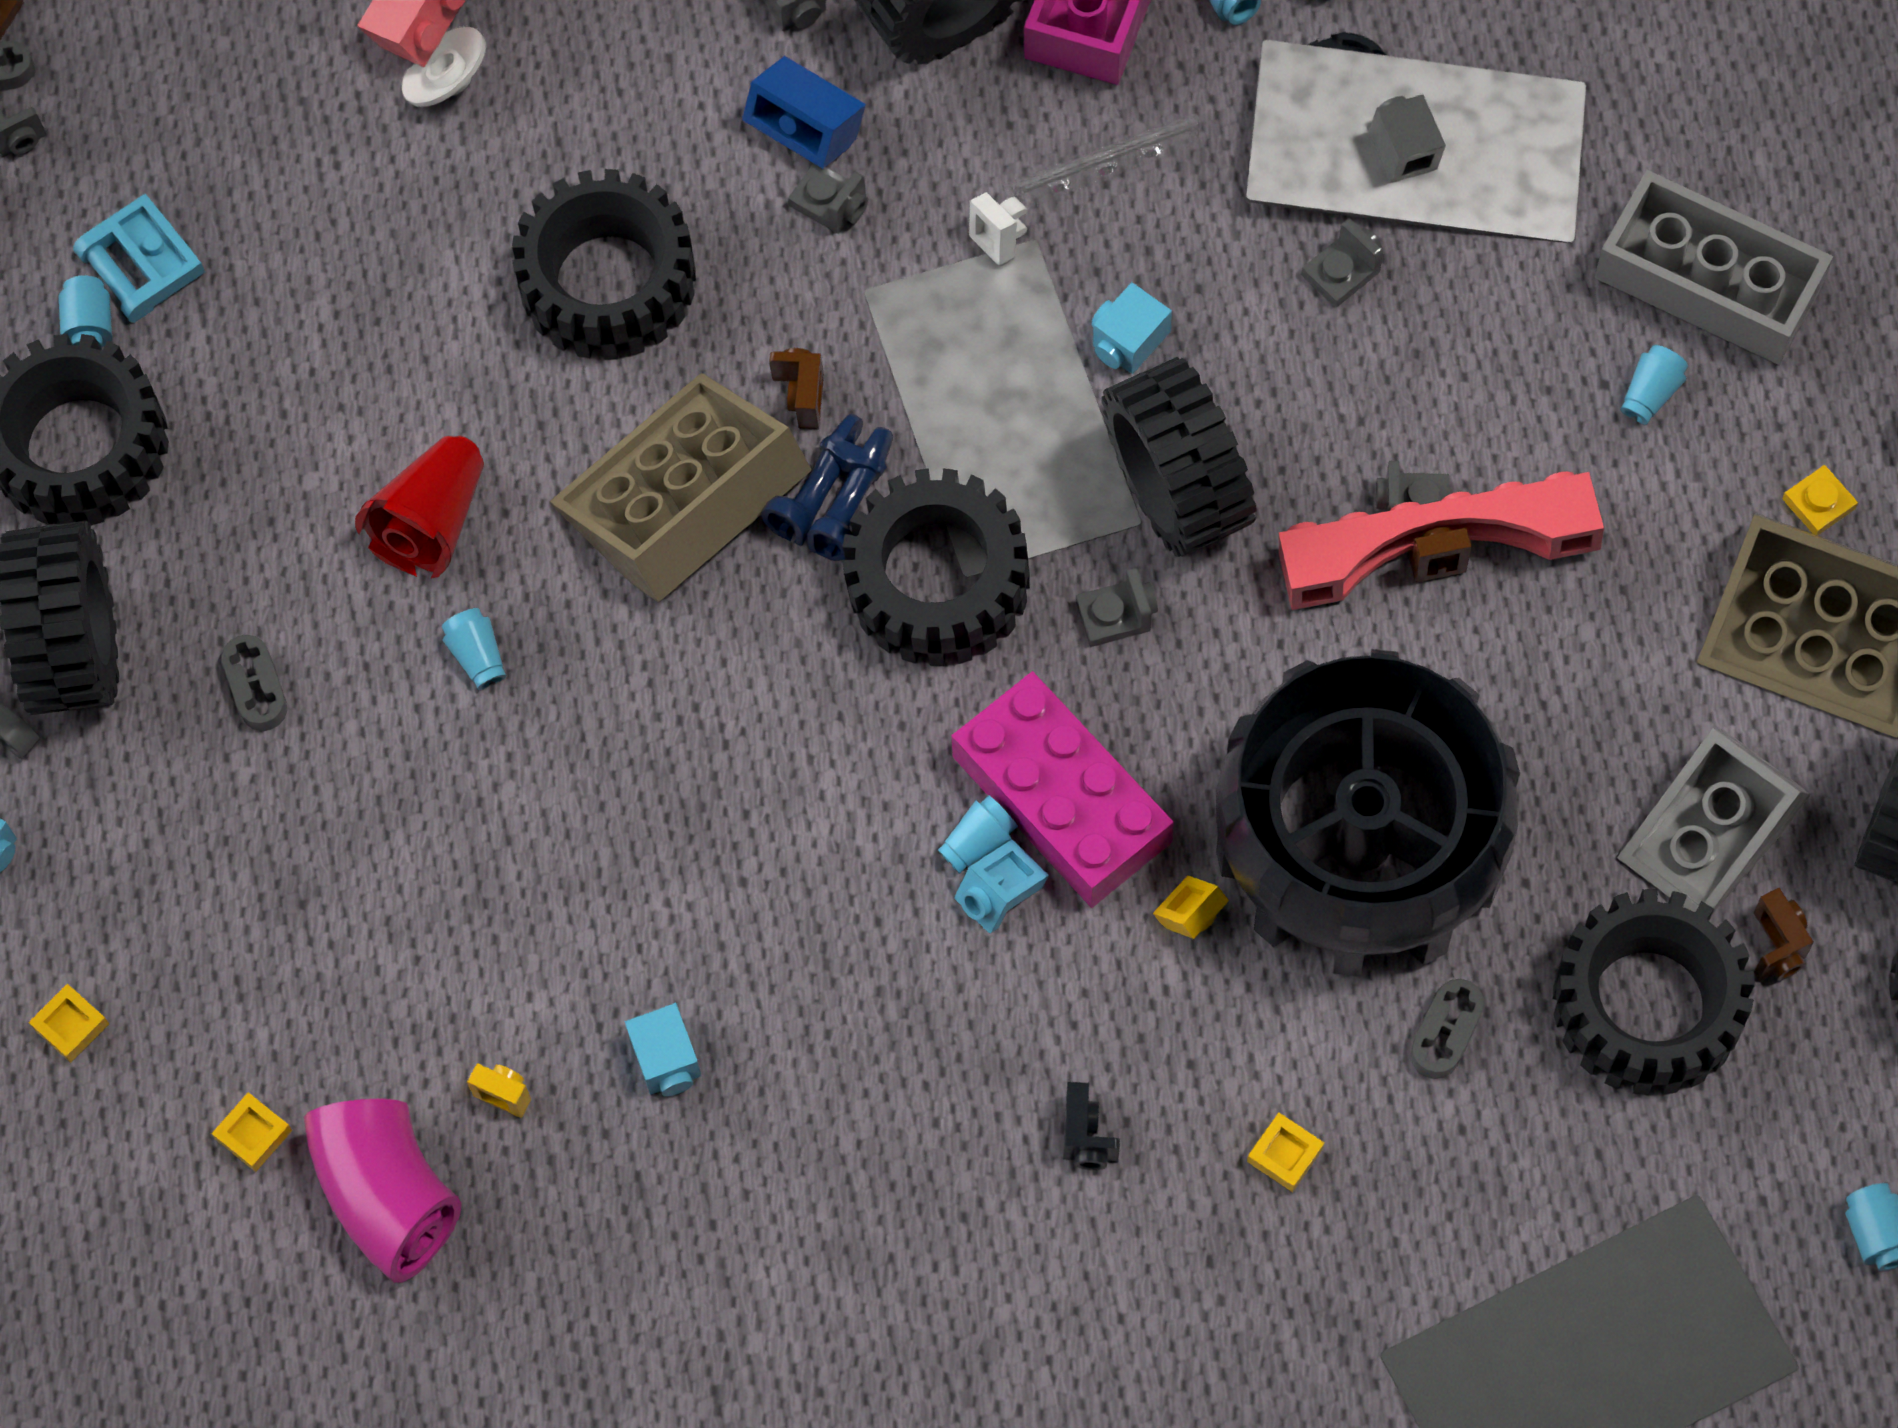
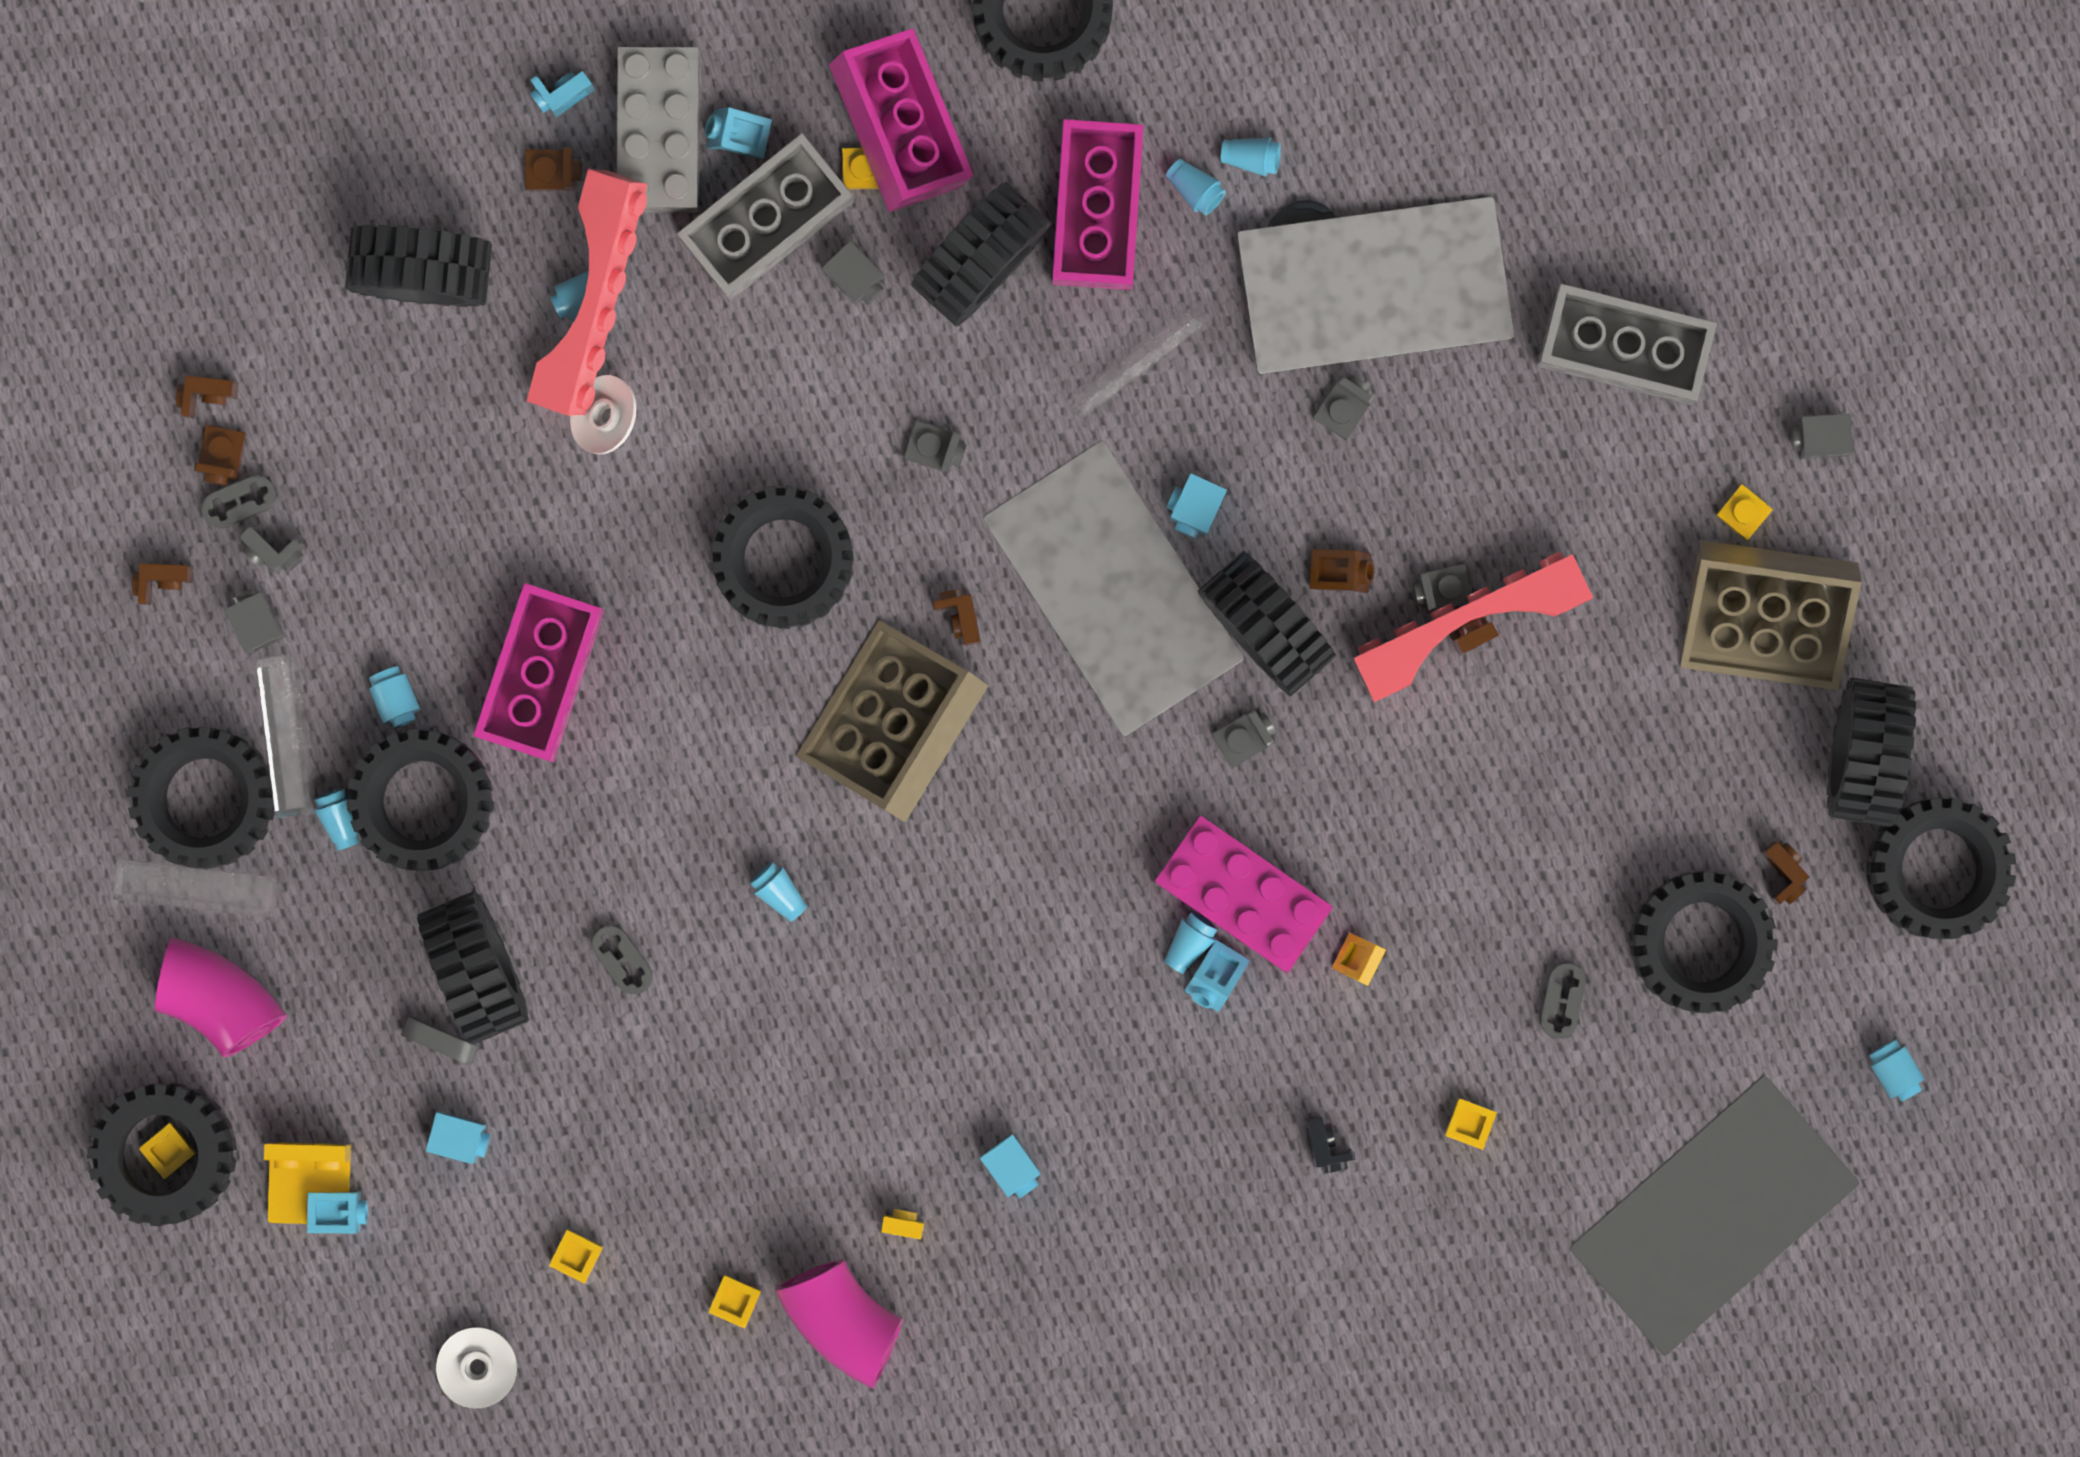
camera: 20 degrees left, 20 degrees up
(151, 246) = (426, 626): medium azure plate -> none
(266, 323) = (539, 672): none -> dark pink brick
(424, 507) = (709, 790): red cone -> none
(803, 112) = (897, 384): blue brick -> none
(837, 456) = (1017, 726): dark blue piece -> none
(950, 624) = (1101, 799): black tyre -> none
(996, 226) = (1073, 444): white tile -> none
(1291, 444) = (1341, 570): none -> reddish brown bracket
(1367, 713) = (1553, 896): black wheel -> none
(1406, 137) = (1369, 293): dark grey brick -> none
(1653, 383) = (1600, 449): medium azure cone -> none
(1713, 822) = (1720, 796): light grey slope -> none

